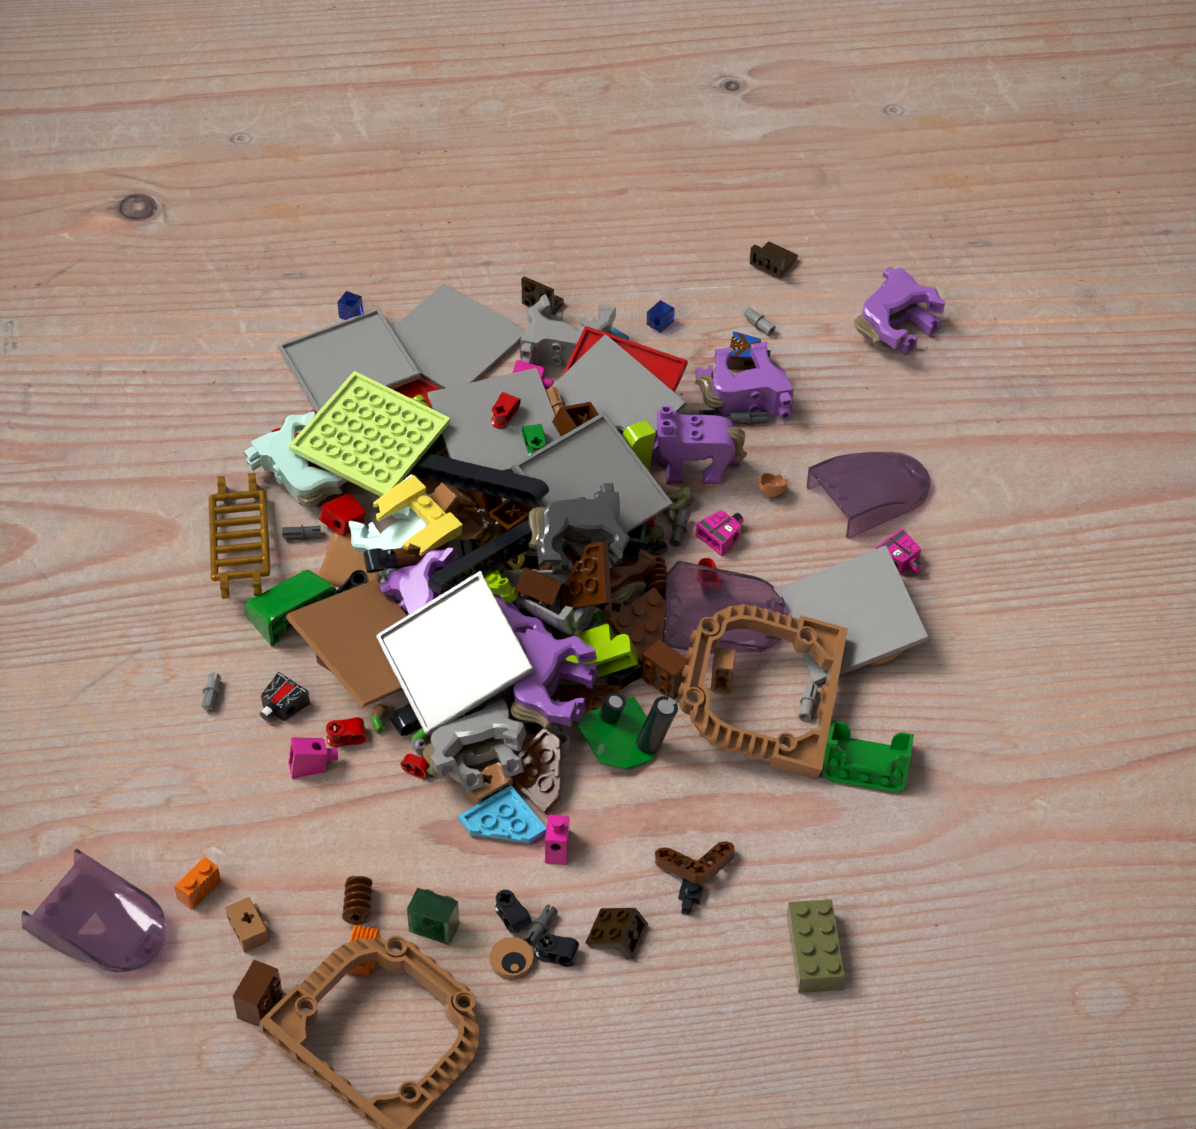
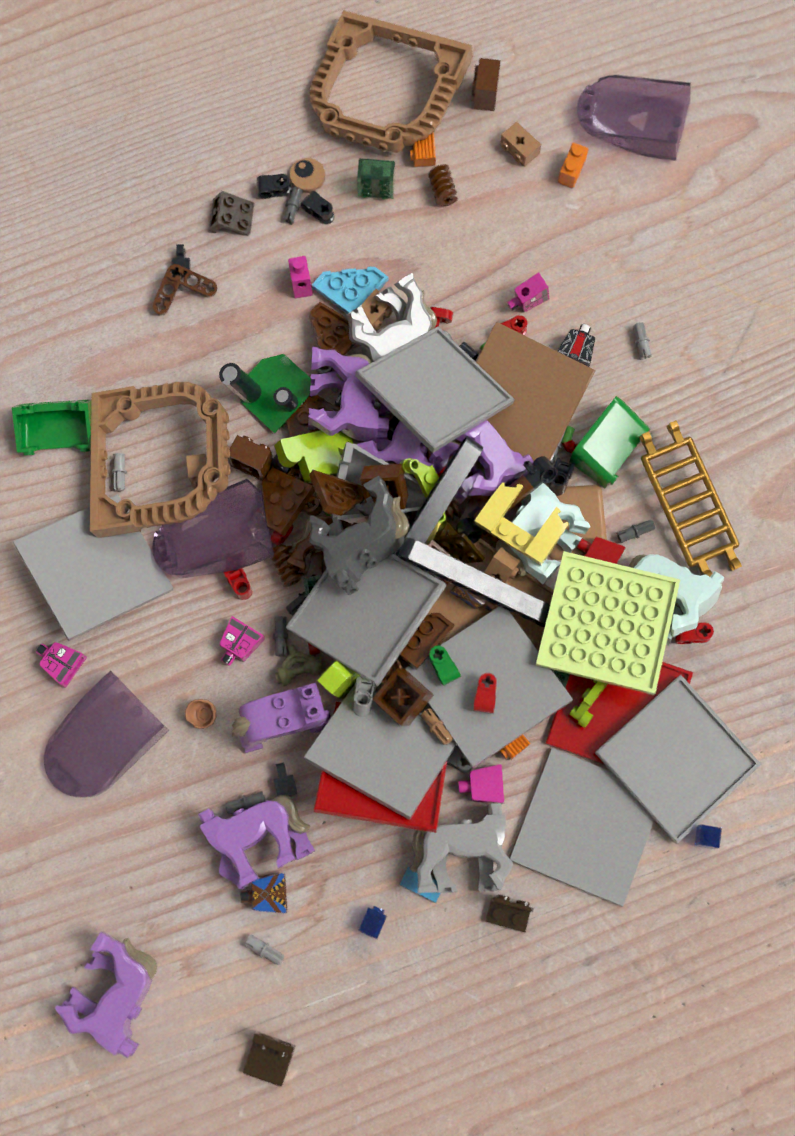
camera: 165 degrees right, 25 degrees up
(815, 946) = (69, 239): olive brick -> none

